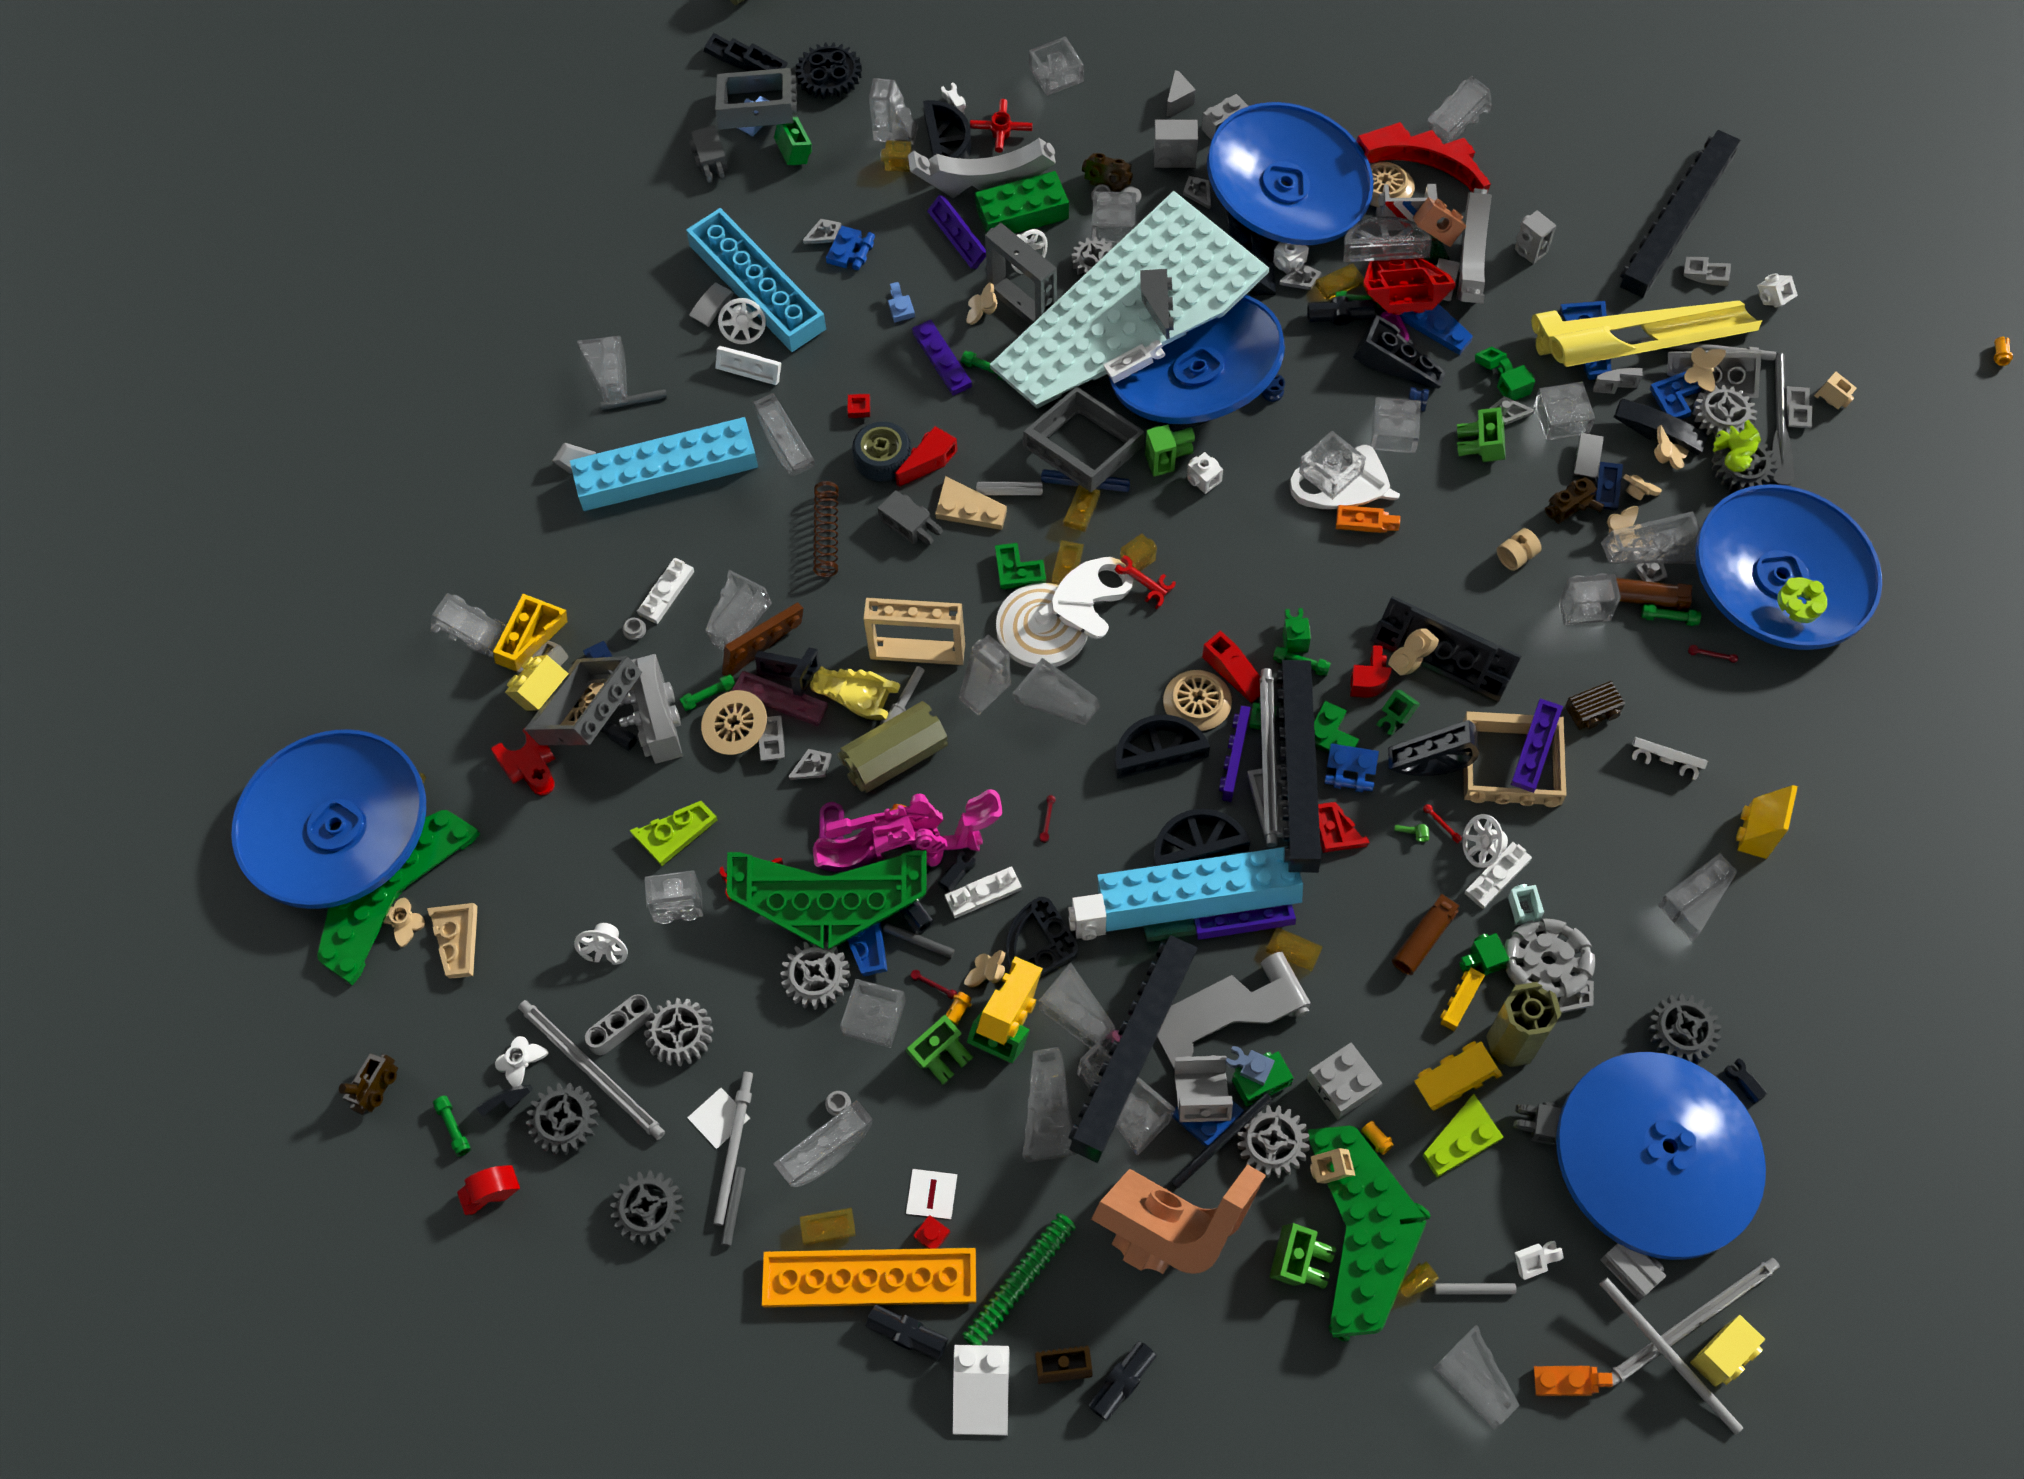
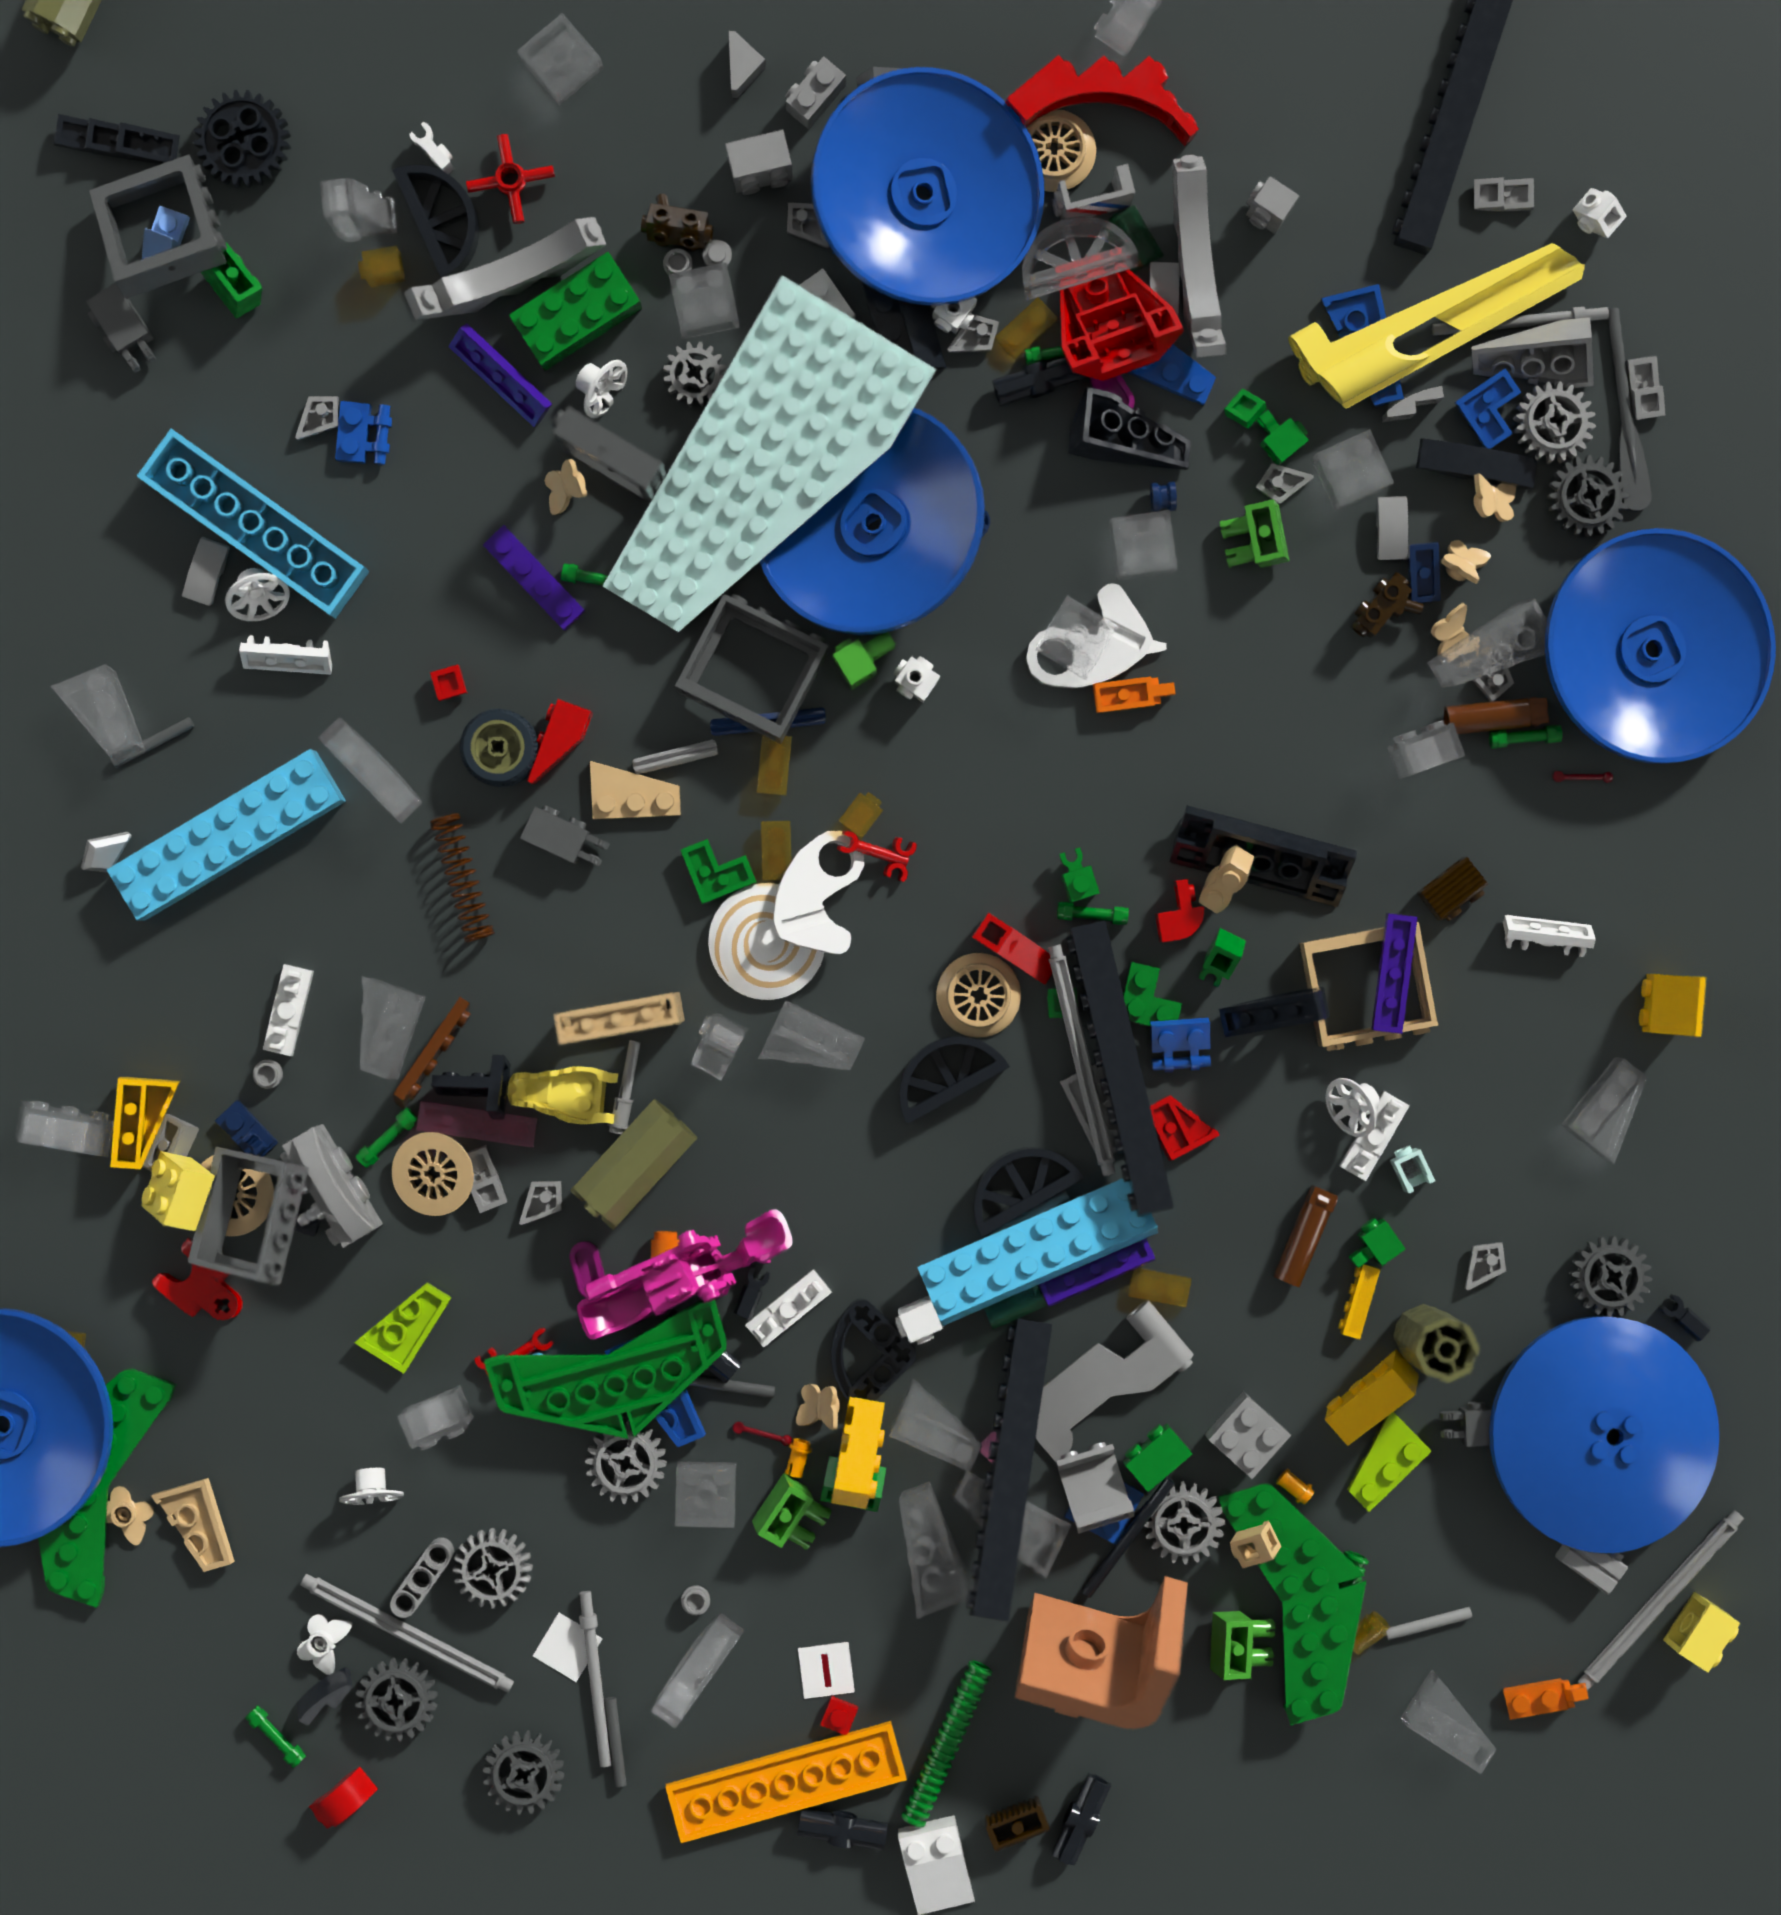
camera: 15 degrees left, 25 degrees up
(370, 1083) = (168, 1718): dark brown brick -> none
(827, 1226) = (725, 1739): clear yellow plate -> none
(900, 307) = (457, 511): medium blue plate -> none
(1044, 836) = (840, 1220): dark red hinge -> none
(1133, 360) = (789, 546): white plate -> none
(1155, 297) = (796, 449): dark grey slope -> none
(1232, 762) = (1040, 1073): dark purple plate -> none
(1254, 1066) = (1147, 1455): sand blue plate -> none
(1420, 830) = (1276, 1105): bright green hand -> none
(1429, 809) = (1280, 1072): red hinge -> none
(1445, 231) = (1142, 218): nougat brick -> none
(1519, 549) = (1321, 701): tan wheel -> none
(1534, 1259) = (1487, 1579): white plate -> none
(1550, 945) = (1465, 1224): light grey plate -> none
(1671, 1356) = (1642, 1647): light grey piece -> none
(1703, 367) = (1520, 370): tan animal -> none
(1742, 446) = (1584, 481): lime animal -> none
(1809, 590) = (1699, 693): lime plate -> none
(1837, 391) = (1691, 354): tan brick -> none

